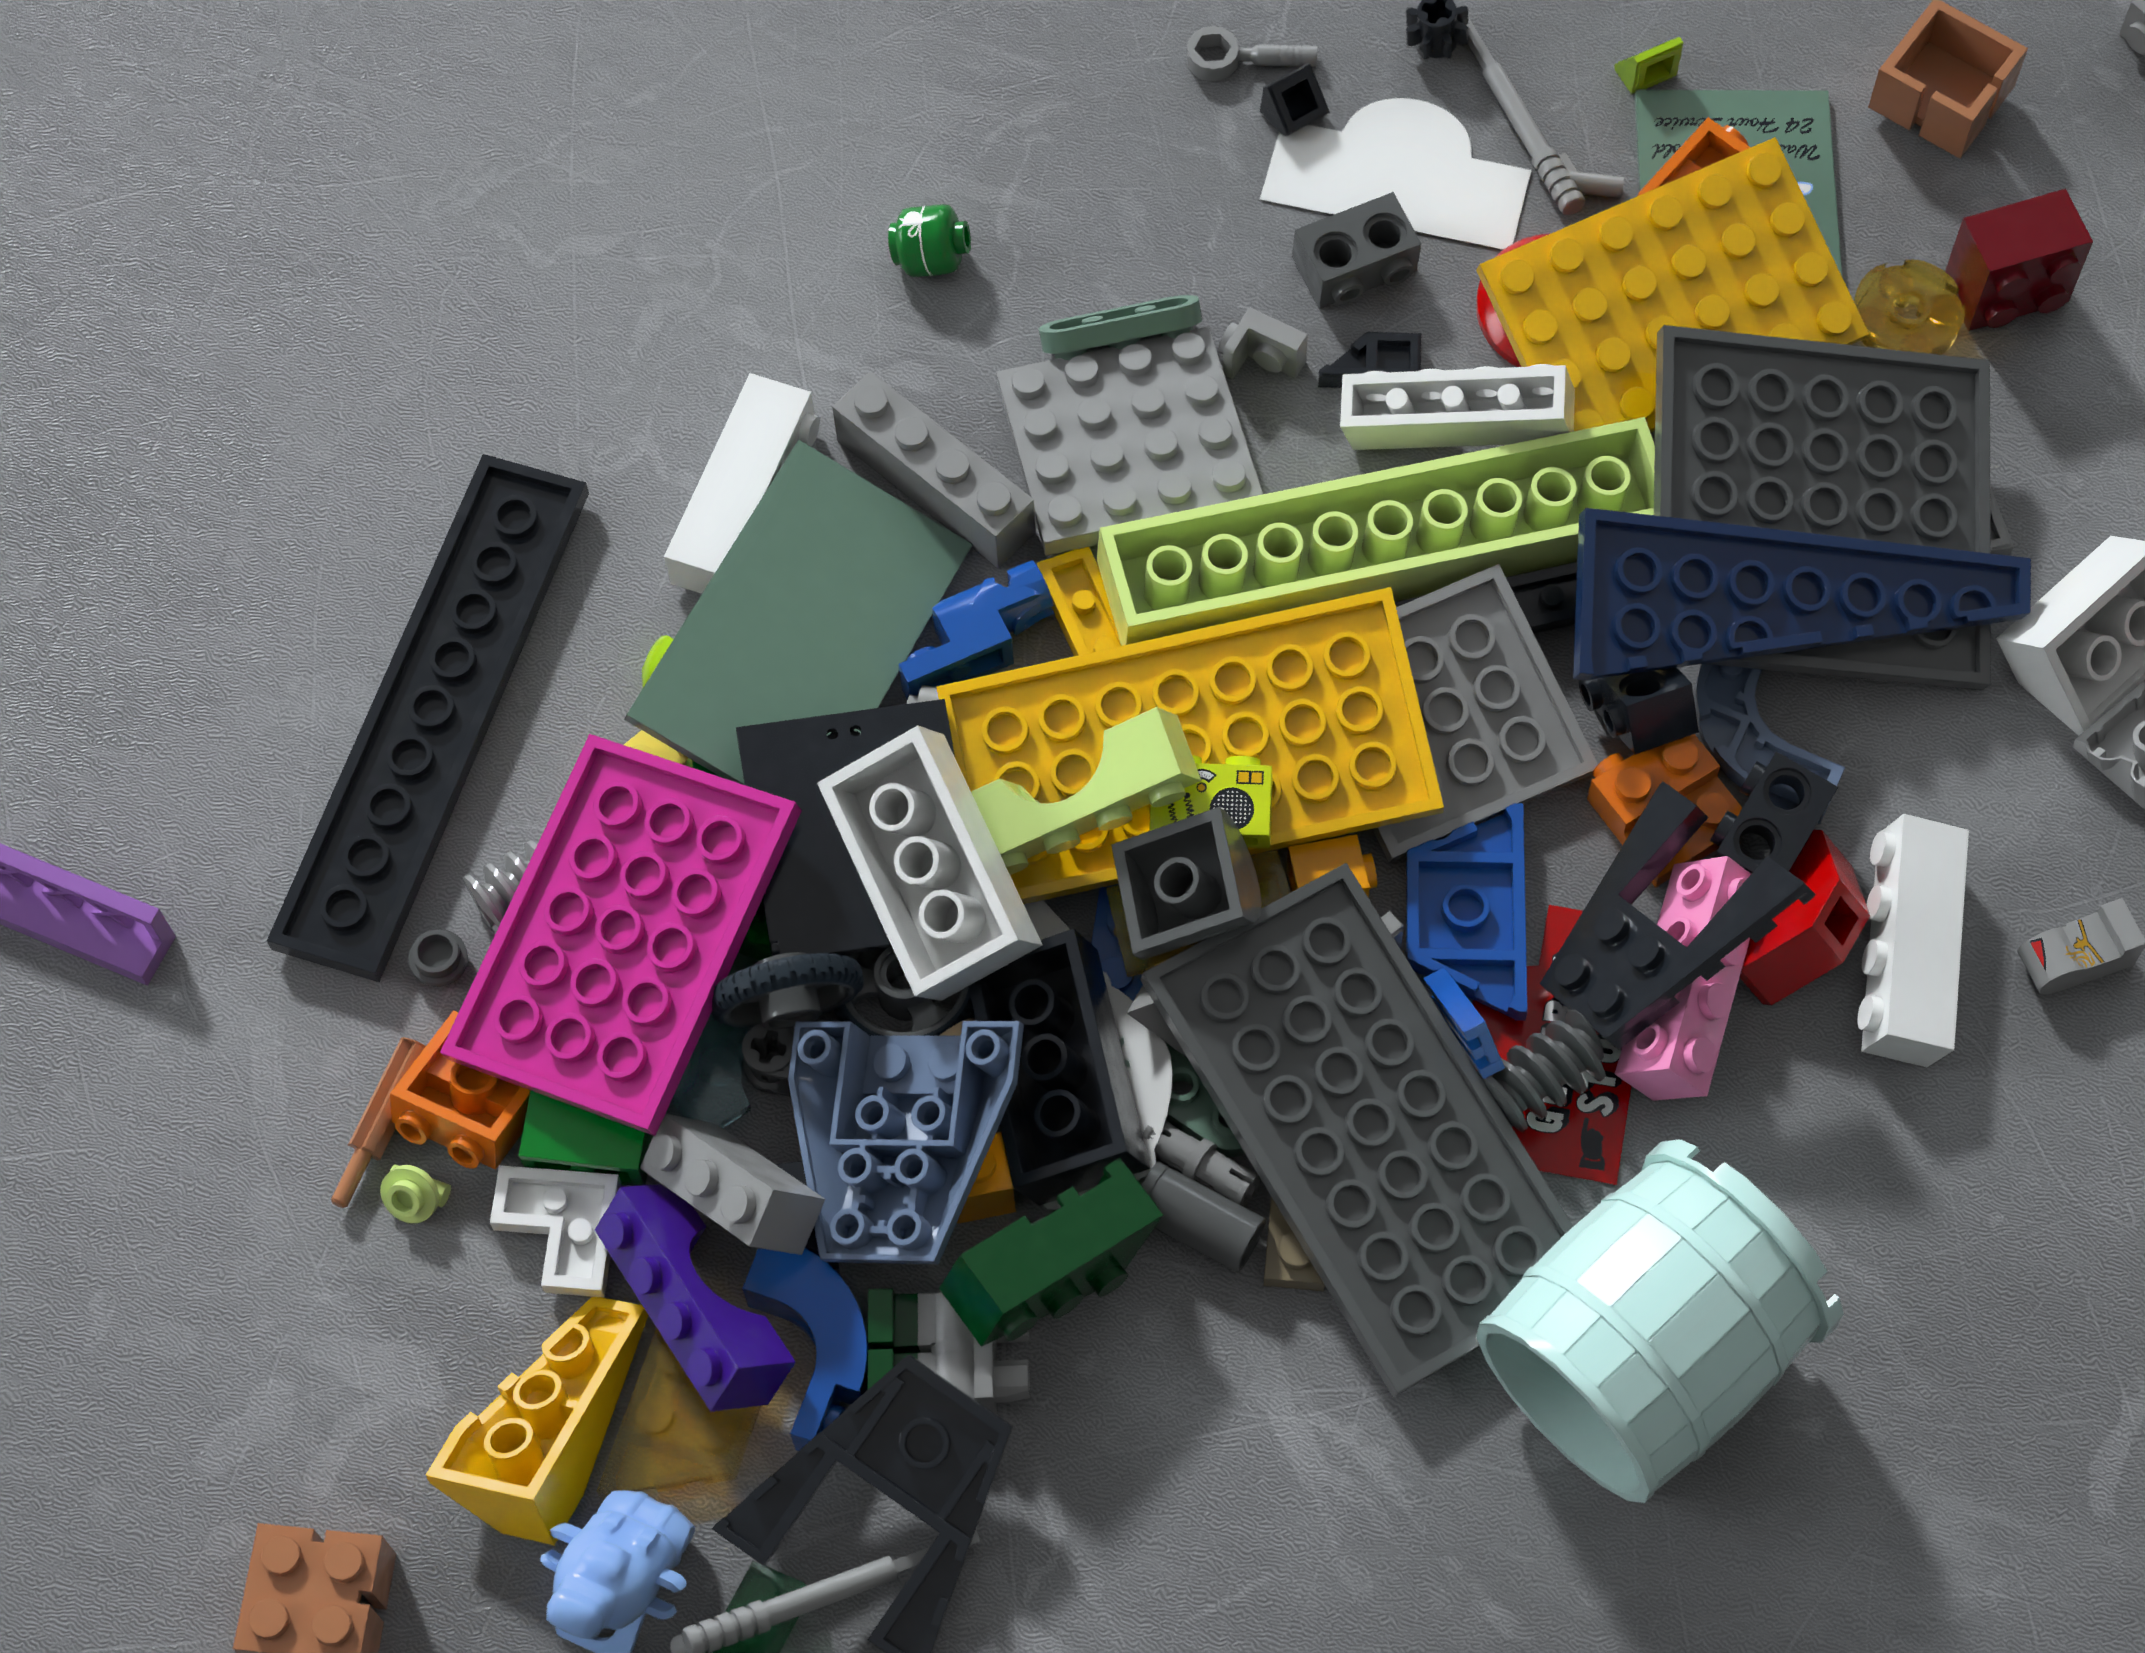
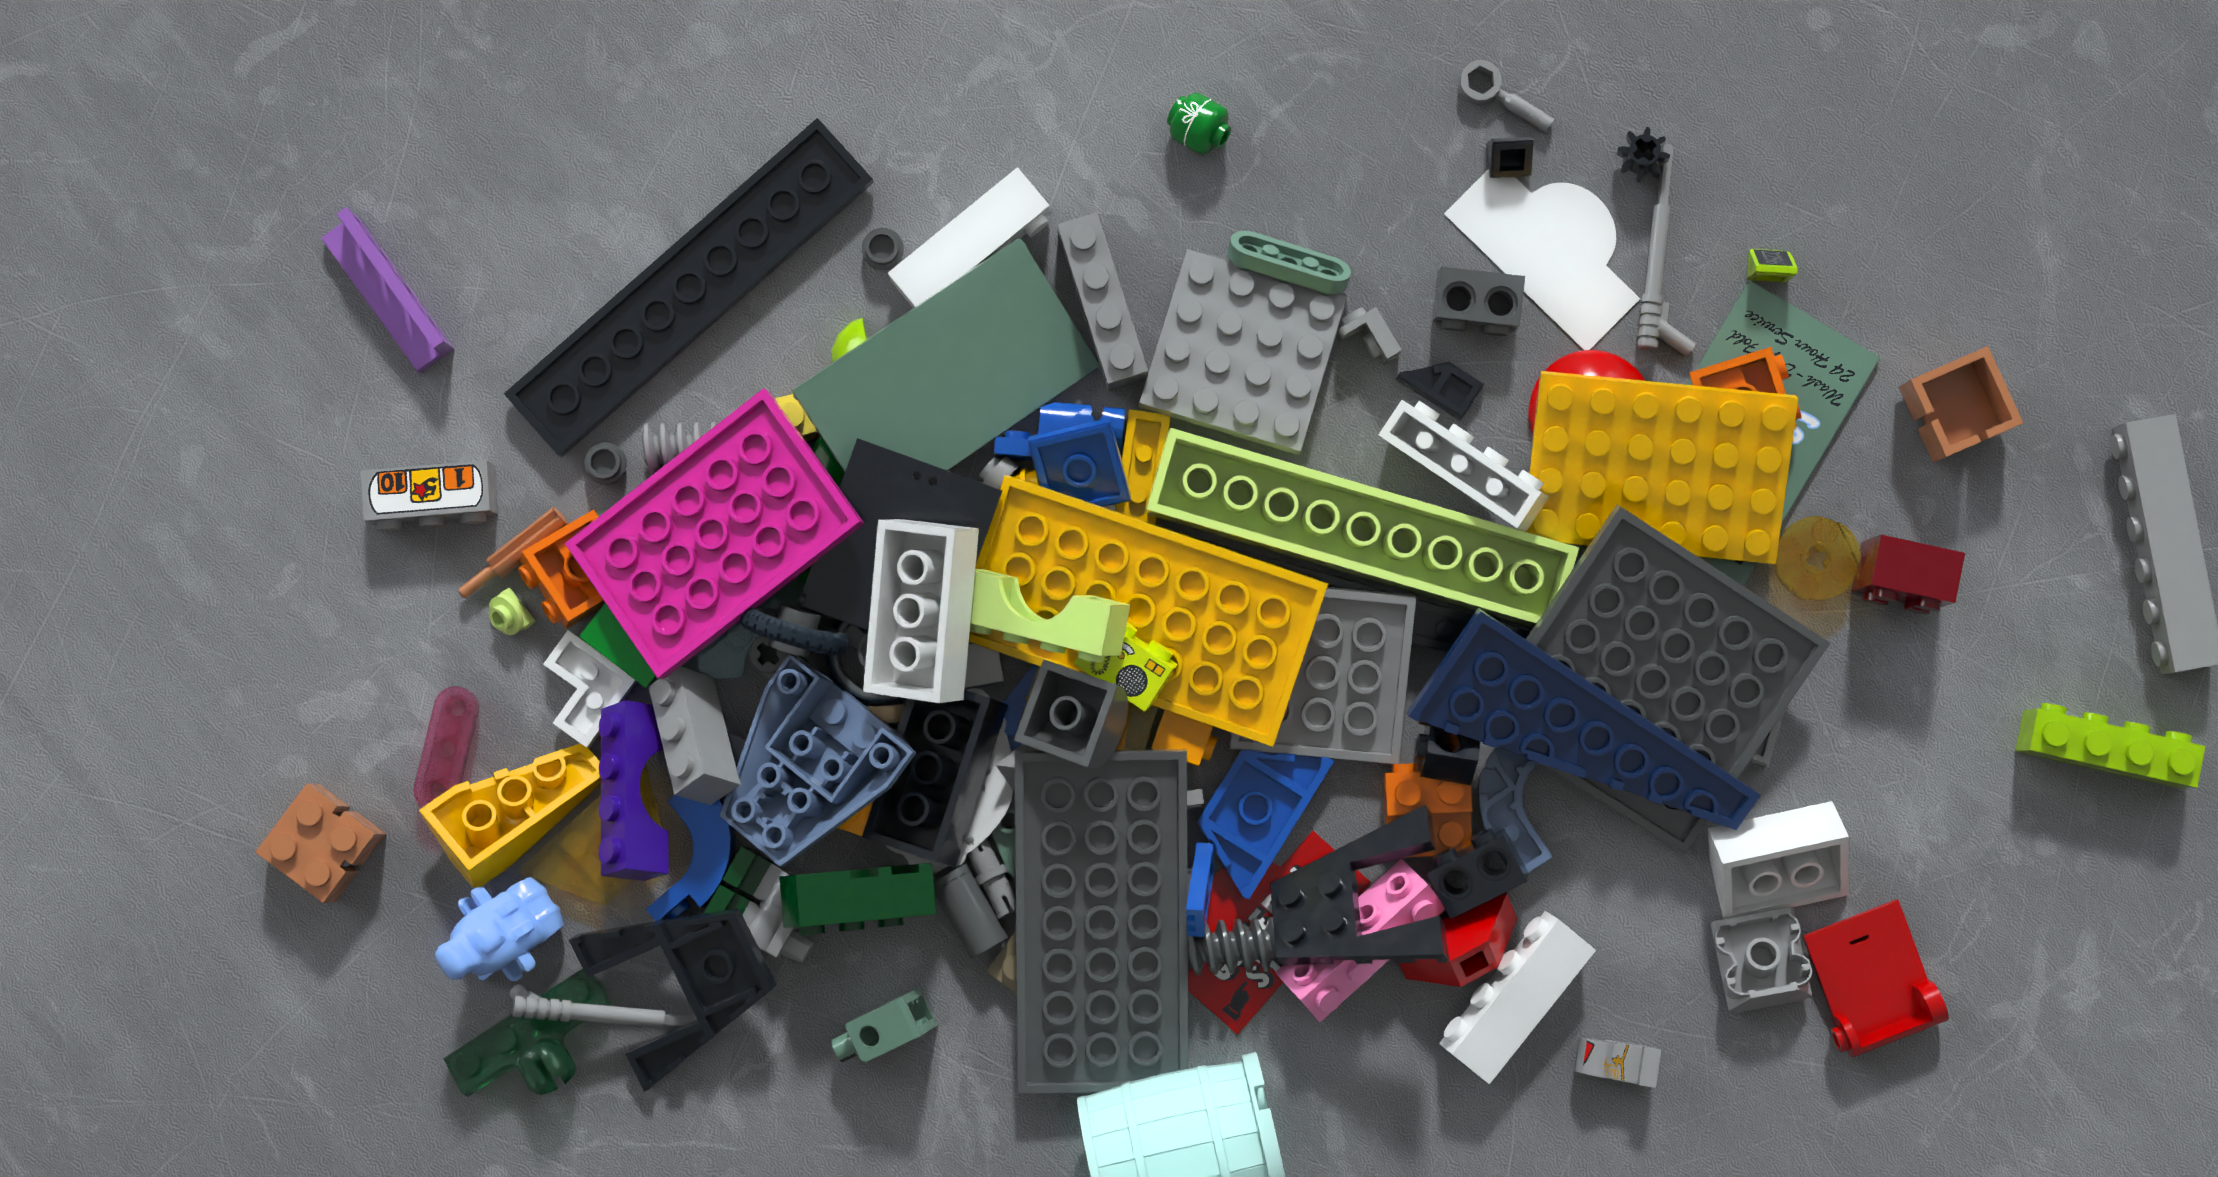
camera: 30 degrees right, 20 degrees up
(233, 1105) = (429, 494): none -> brick
(405, 1376) = (446, 727): none -> clear pink plate
(640, 553) = (882, 248): none -> dark grey plate
(1016, 628) = (1082, 463): none -> blue tile
(1188, 1383) = (895, 1022): none -> sand green torso

